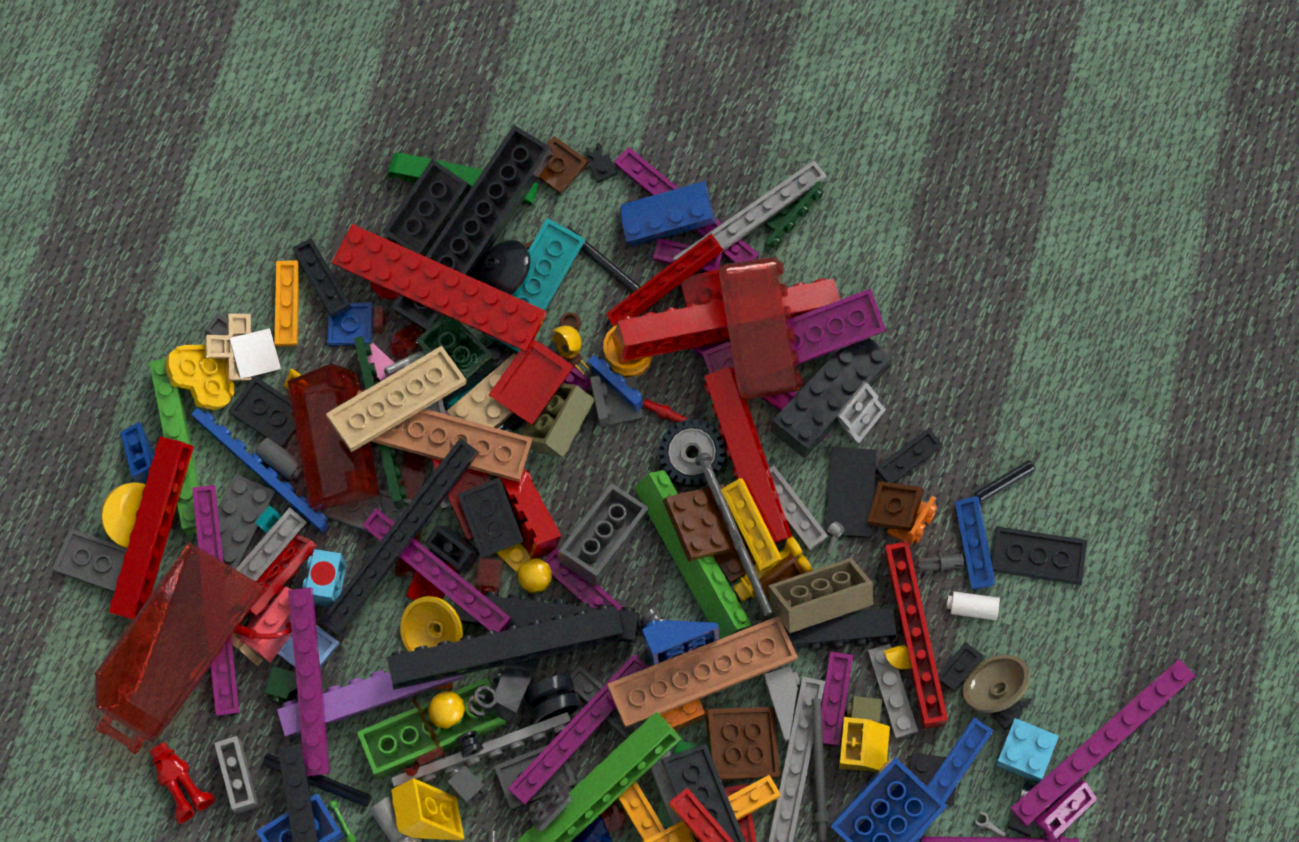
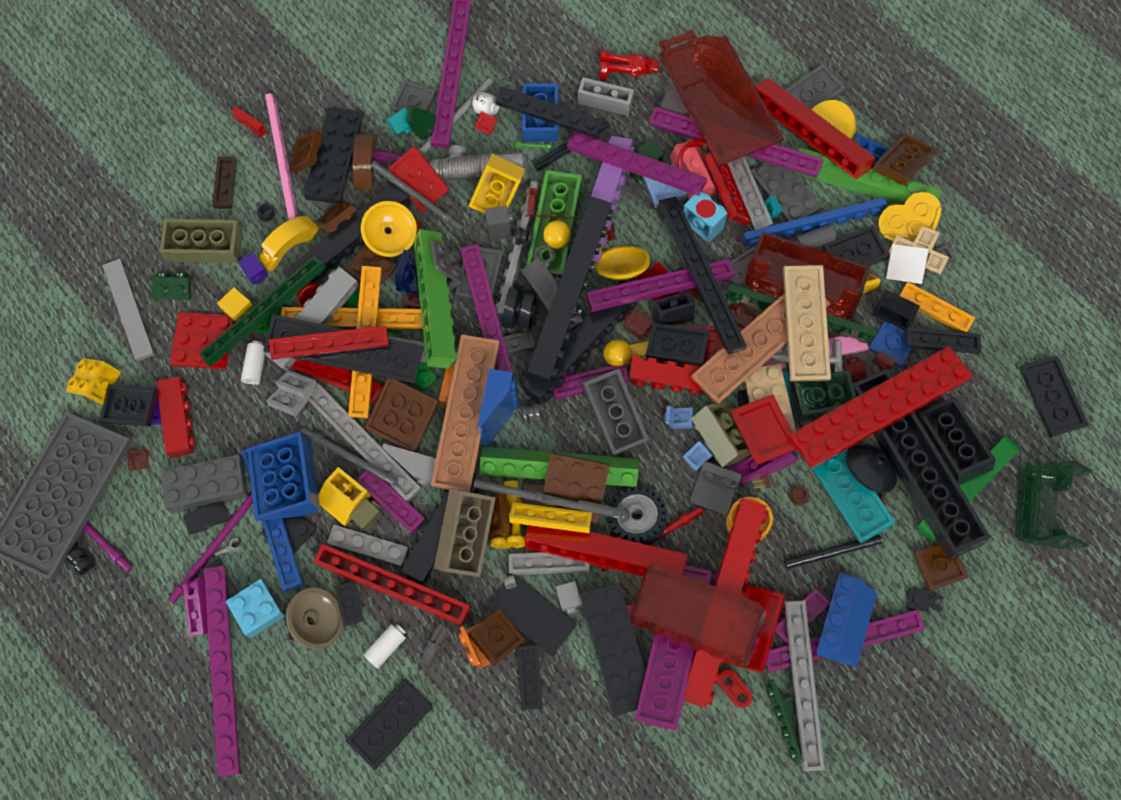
camera: 120 degrees right, 0 degrees up
(132, 416) = (904, 159): none -> reddish brown plate
(201, 698) = (673, 101): none -> dark grey slope
(315, 337) = (896, 310): none -> black piece
(317, 152) = (1053, 396): none -> black plate
(441, 113) = (1039, 502): none -> clear green windscreen
(563, 474) = (679, 417): none -> medium blue bracket
(570, 337) = (784, 482): yellow hair -> none
(591, 435) = (698, 454): none -> medium blue bracket
(616, 382) = (727, 494): blue plate -> none
(666, 280) = (787, 581): red plate -> none
(794, 276) = (735, 688): none -> red plate
(812, 467) = (569, 597): none -> light grey brick
(860, 412) = (585, 660): light grey slope -> none
(898, 657) = (385, 560): yellow tile -> none
(975, 543) = (430, 680): blue plate -> none
(1005, 481) = (462, 739): black axle -> none

